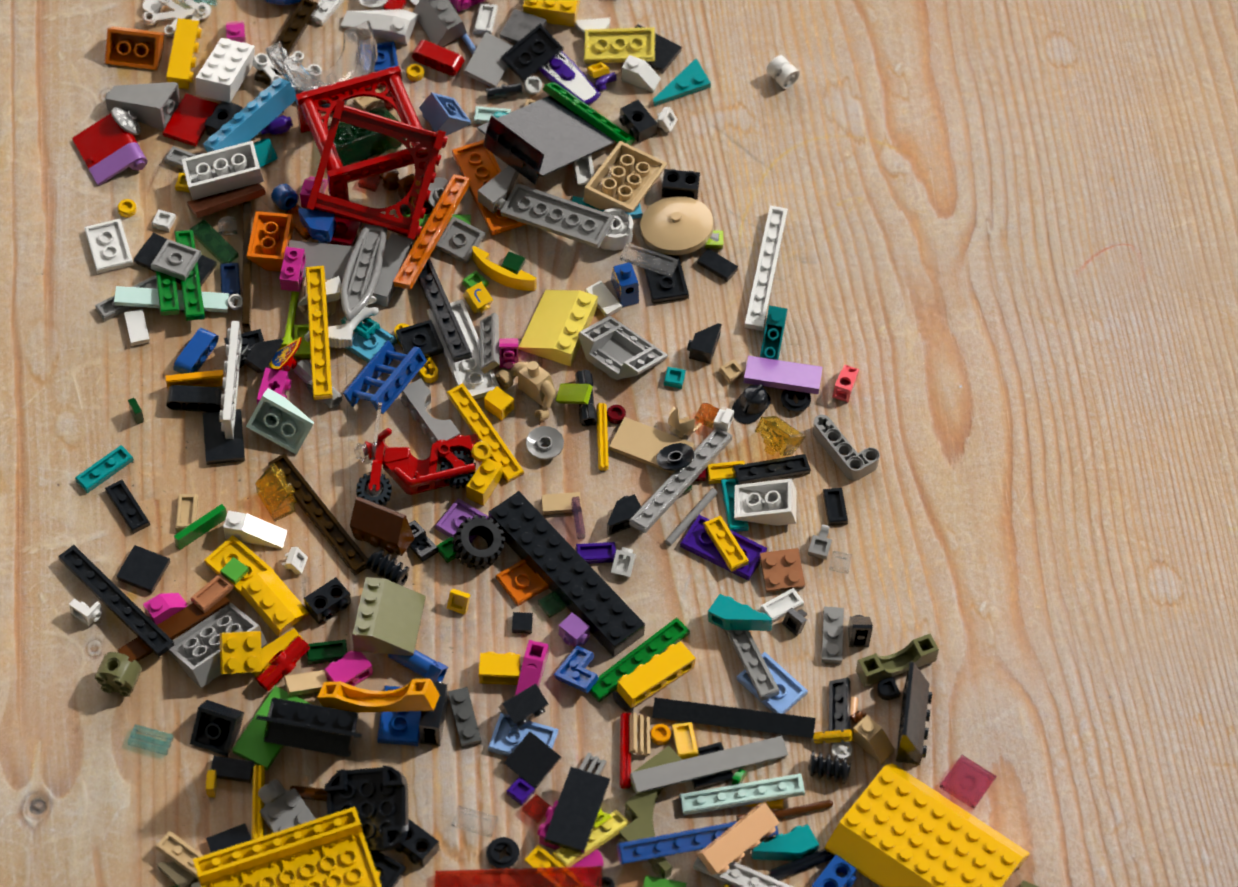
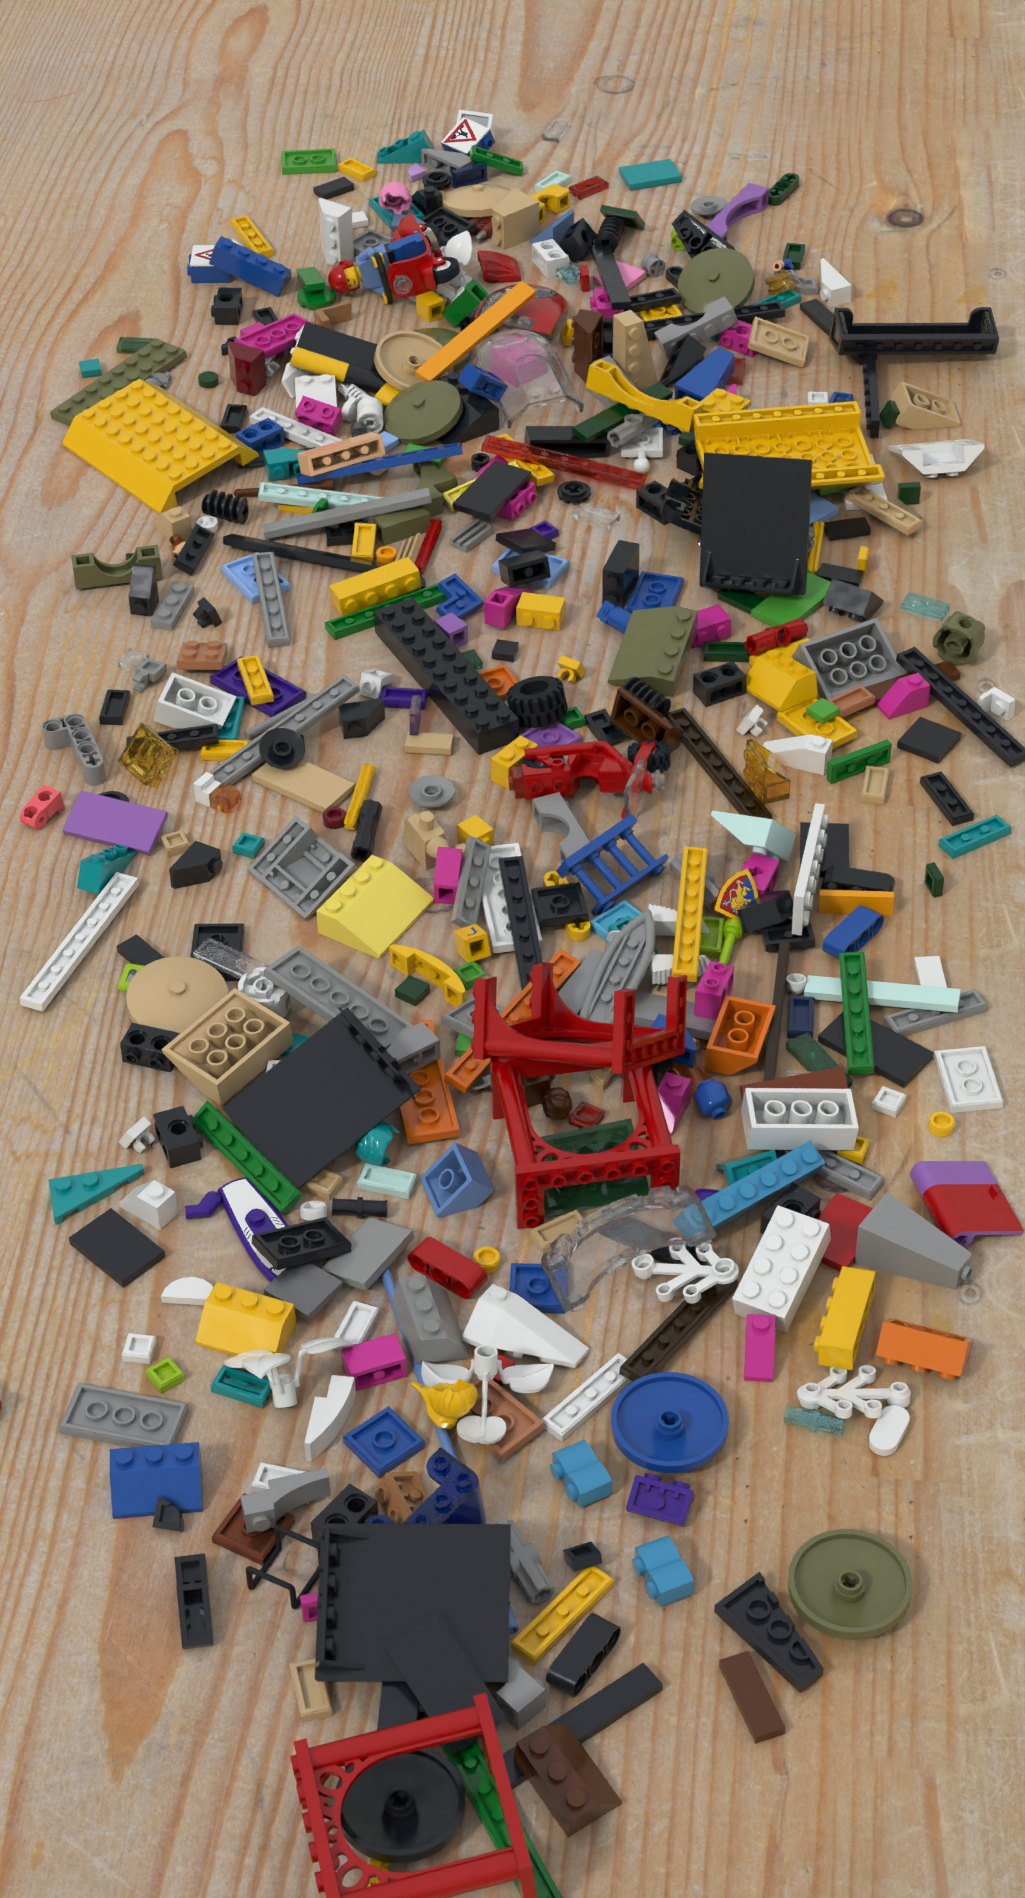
camera: 165 degrees left, 15 degrees down
(126, 120) = (944, 1215): light grey dish -> none
(167, 294) = (887, 990): green tile -> none
(176, 259) = (873, 1019): light grey tile -> none
(240, 652) = (812, 631): yellow plate -> none
(305, 682) = (752, 623): tan tile -> none
(415, 696) = (643, 551): light orange arch -> none
(464, 717) = (587, 587): dark grey plate -> none
(481, 425) = (501, 810): yellow tile -> none
(481, 451) = (512, 761): yellow tile -> none
(536, 808) = (530, 517): clear red tile -> none
(574, 393) = (380, 825): lime tile -> none
(598, 70) = (208, 1218): yellow tile -> none
(606, 301) = (306, 934): white tile -> none
(618, 44) = (163, 1245): light yellow tile -> none
(623, 278) = (273, 923): blue torso -> none
(681, 426) = (259, 785): tan piece -> none
(736, 616) = (272, 609): teal slope -> none
(751, 404) = (175, 805): black piece -> none
(781, 604) = (220, 632): white tile -> none
(833, 736) = (211, 525): yellow axle -> none
(913, 717) = (127, 519): black slope -> none
(968, 781) = (93, 492): clear pink tile -> none

